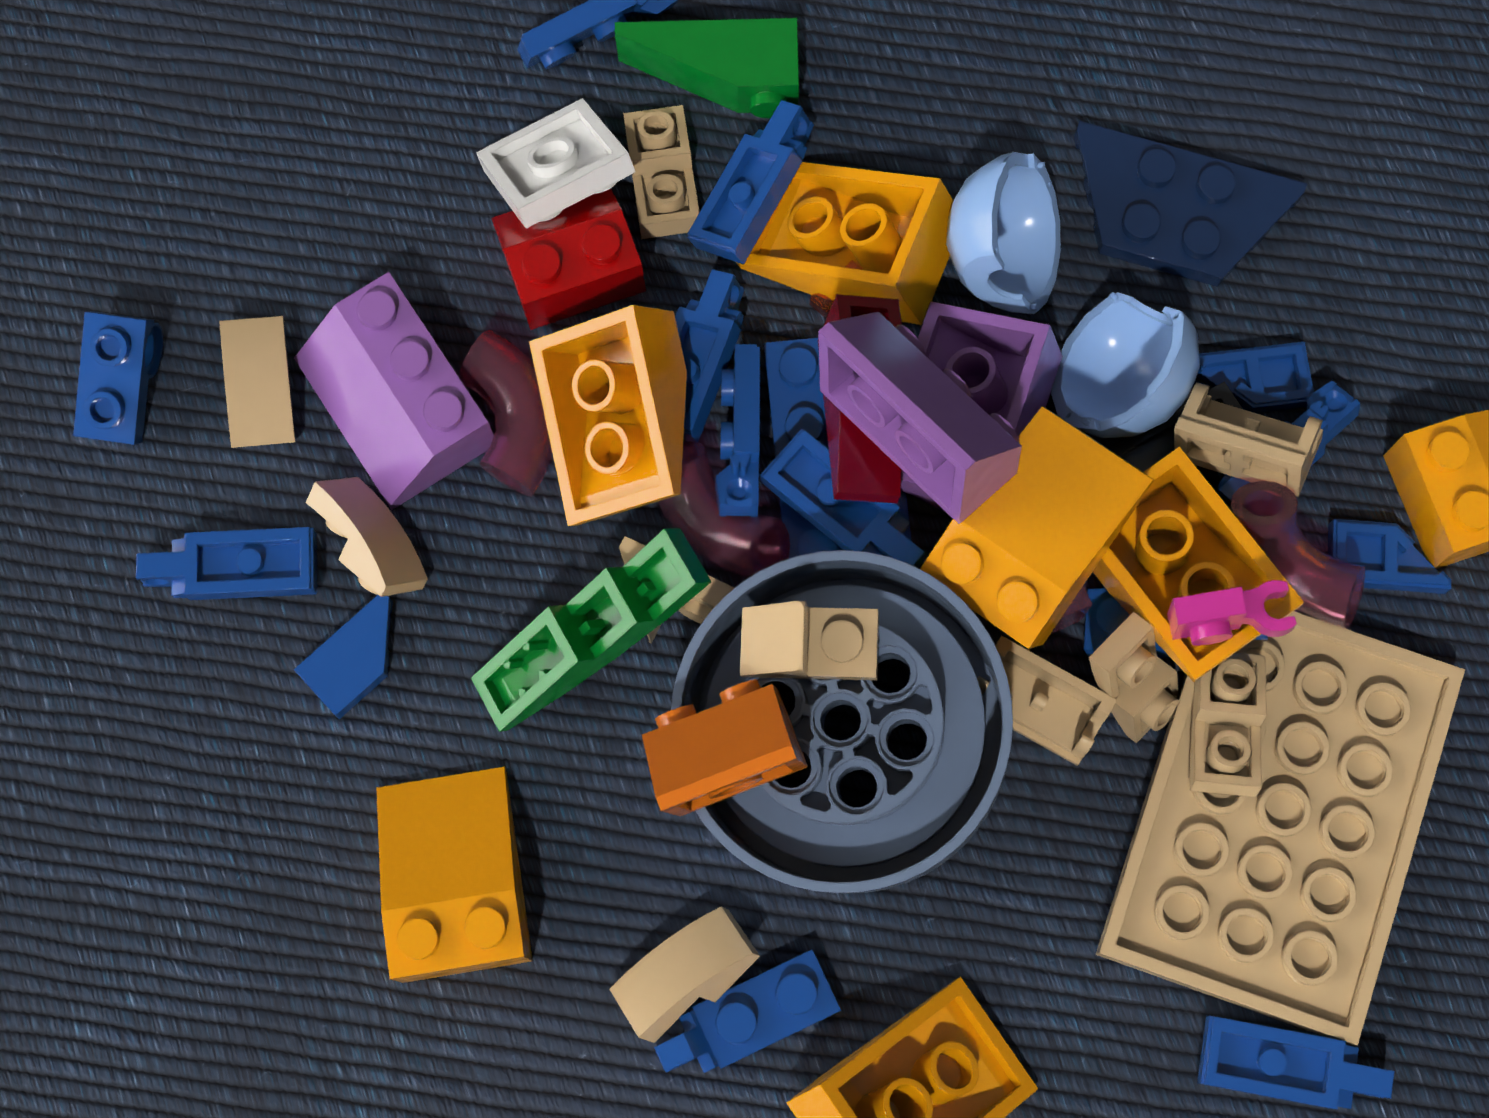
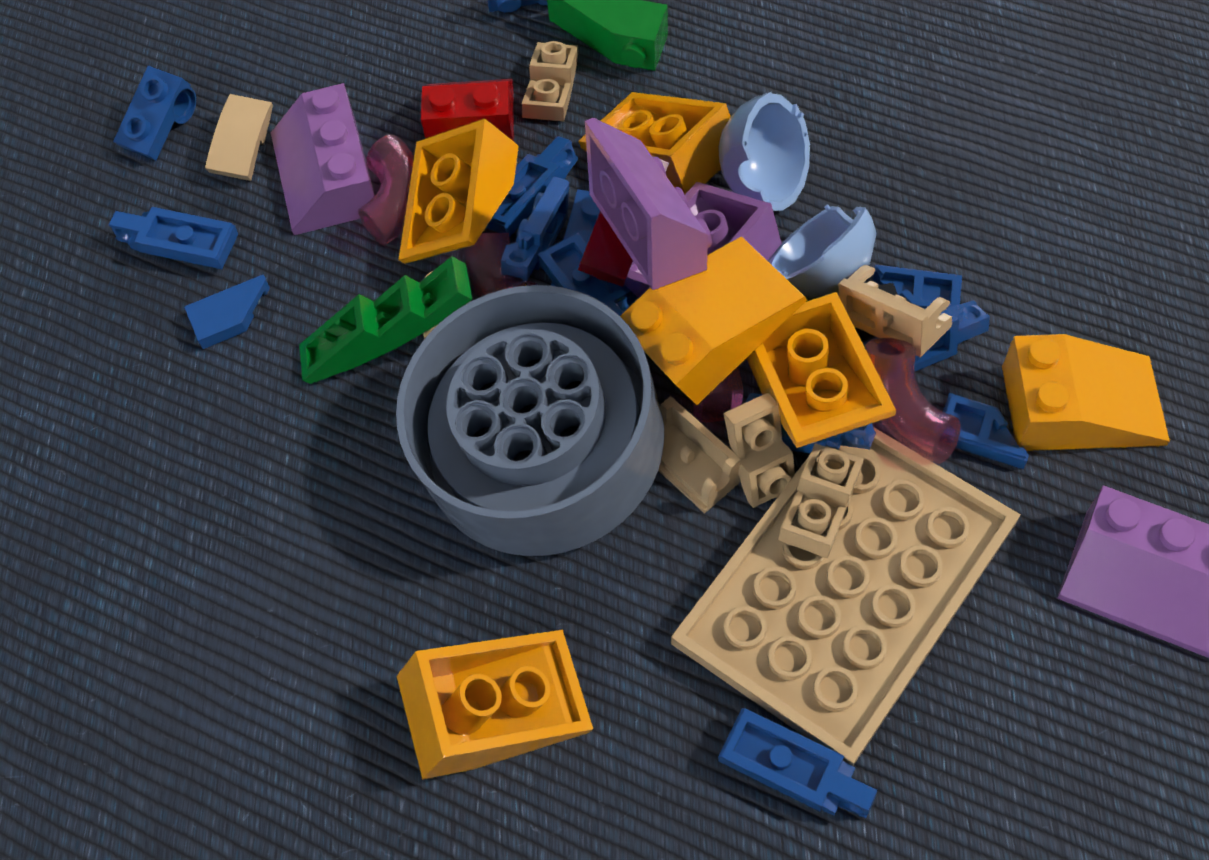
camera: 20 degrees right, 15 degrees down
(376, 542) = (267, 238): tan slope -> none
(450, 876) = (225, 466): light orange slope -> none
(555, 163) = (489, 52): white plate -> none
(690, 964) = (372, 559): tan slope -> none
(722, 749) = (425, 389): orange slope -> none
(752, 185) = (605, 94): blue hinge -> none
(752, 1016) = (397, 614): blue hinge -> none
(809, 642) = (518, 338): tan slope -> none
(1177, 205) = (898, 177): dark blue wing -> none
(1214, 614) = (825, 393): dark pink plate -> none

